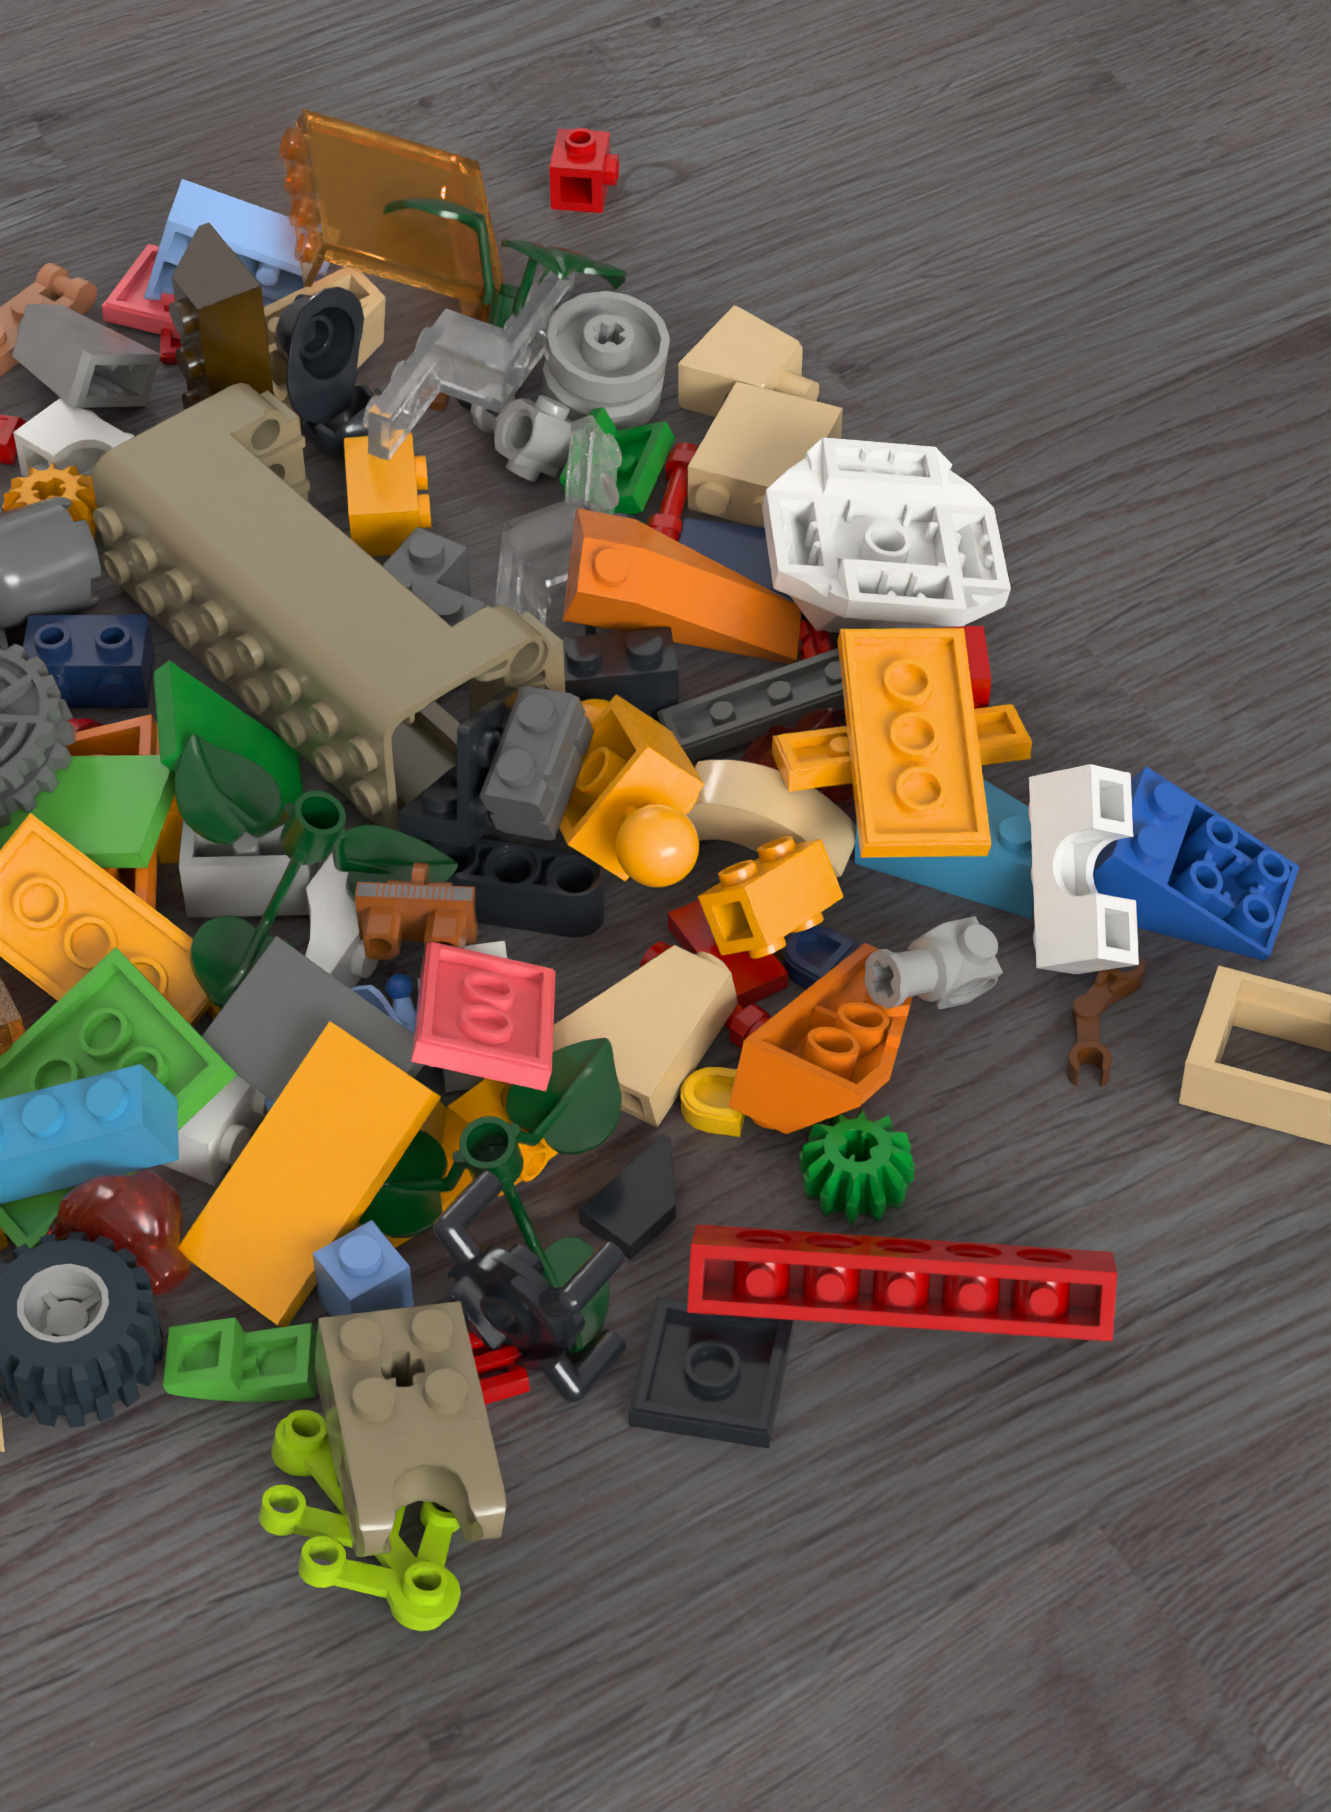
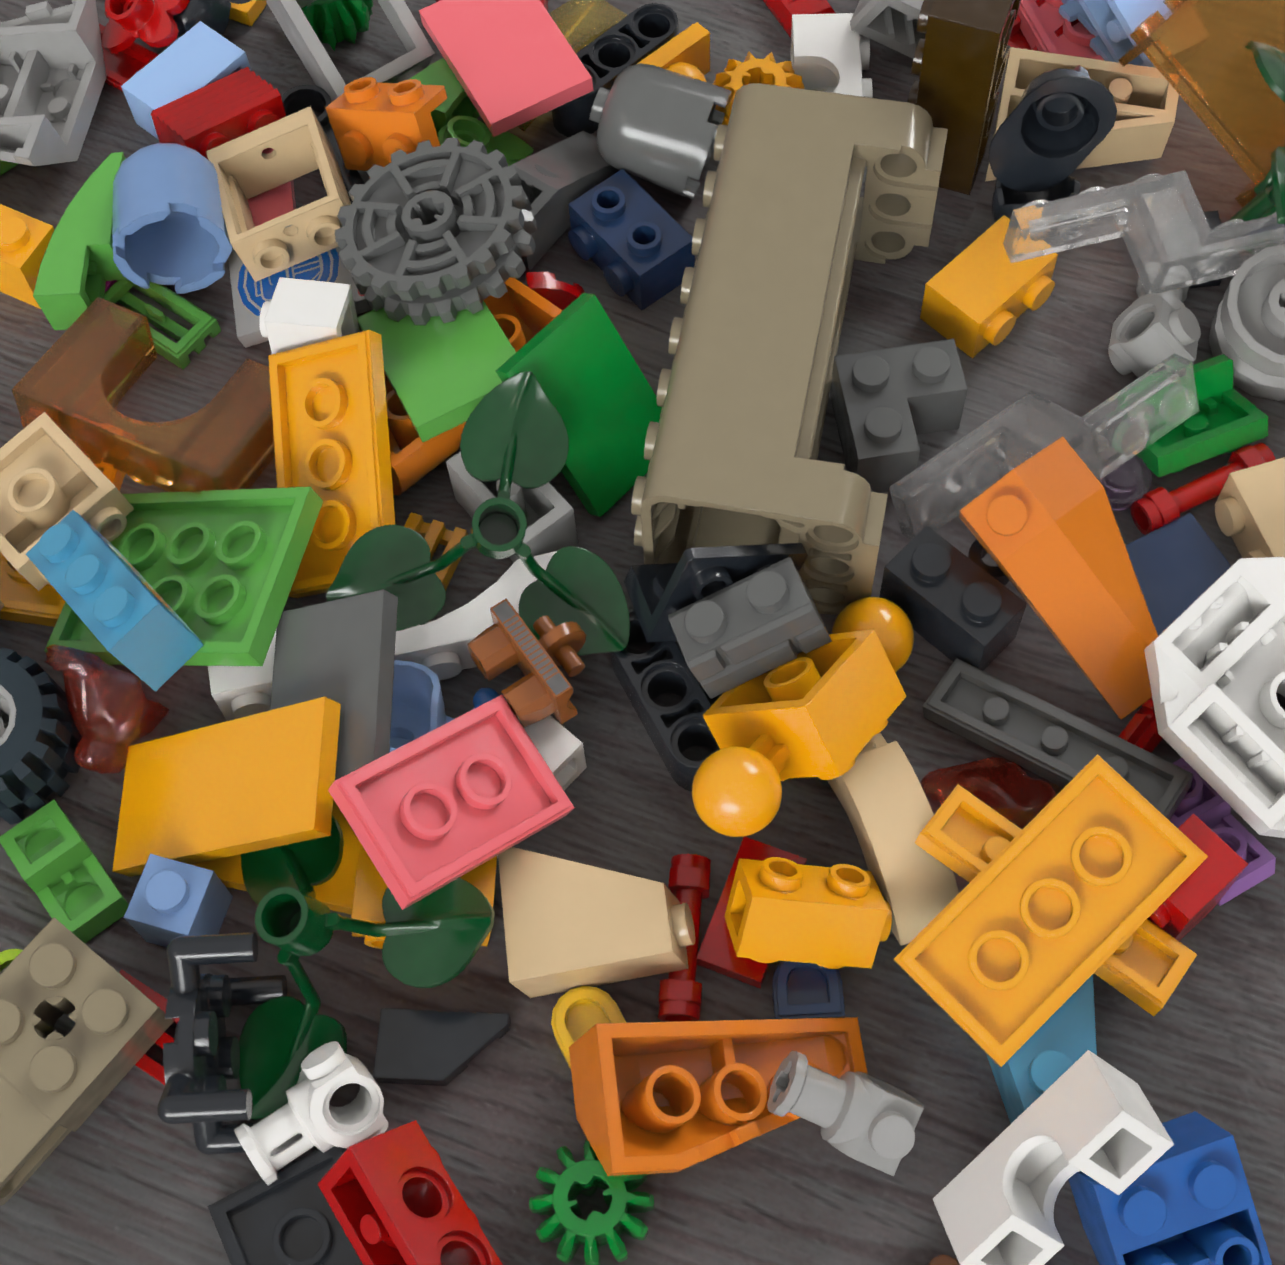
camera: 55 degrees right, 15 degrees up
(637, 1287) = (310, 1119): none -> white connector

